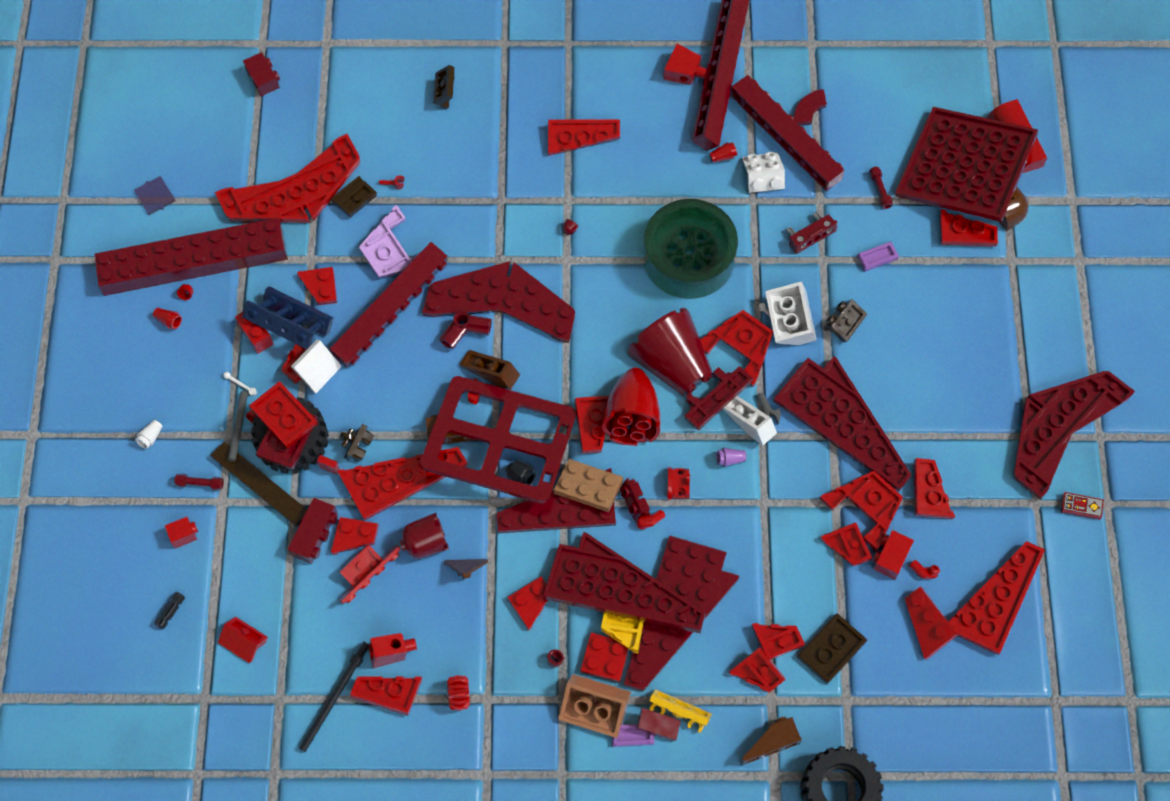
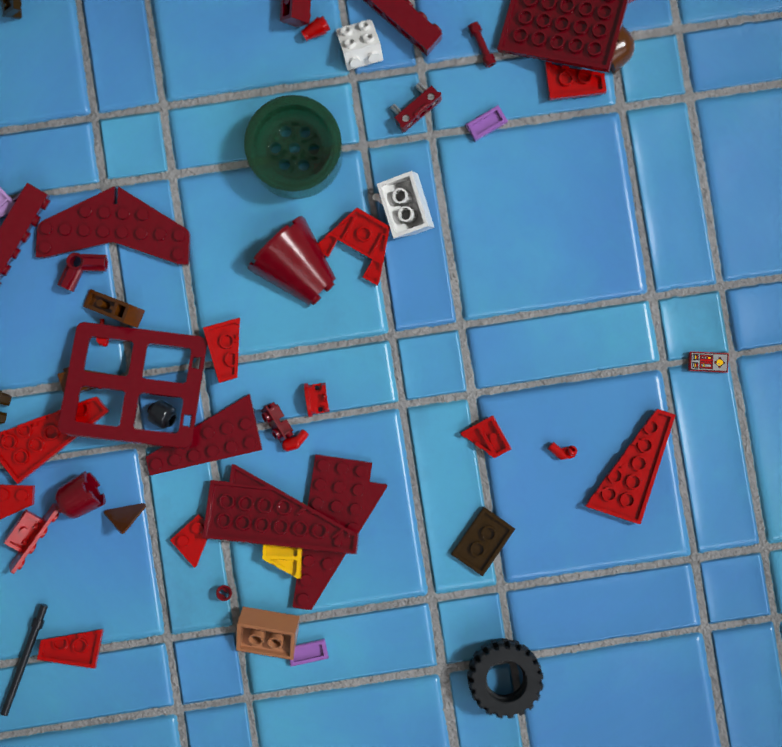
camera: 10 degrees left, 20 degrees up
(383, 650) = (60, 615): red torso -> none
(458, 692) = (138, 643): red gear -> none
(569, 227) = (168, 138): dark red hinge -> none
(580, 133) = (160, 29): red wing -> none
(588, 485) = (229, 417): medium nougat plate -> none
(604, 658) = (270, 584): red plate -> none
(633, 404) = (260, 330): red cylinder -> none
(658, 724) = (329, 641): dark red tile -> none
(680, 709) = (348, 623): yellow plate -> none
(728, 388) = (353, 293): dark red hinge -> none
(730, 456) = (363, 364): medium lavender cone -> none
(751, 420) = (377, 322): white slope -> none
(759, 671) = (417, 575): red wing -> none
(767, 409) = (393, 306): dark grey bar -> none
(778, 639) = (430, 541): red wing -> none
(778, 737) = (441, 637): reddish brown slope -> none
(836, 411) = (460, 299): dark red wing -> none
(845, 319) = (460, 200): dark brown bracket -> none
(874, 498) = (508, 387): red wing -> none
(893, 554) = (531, 441): red brick -> none
(929, 492) = (560, 371): red wing -> none
(929, 623) = (571, 504): red wing -> none
(1059, 414) = (670, 288): dark red wing -> none

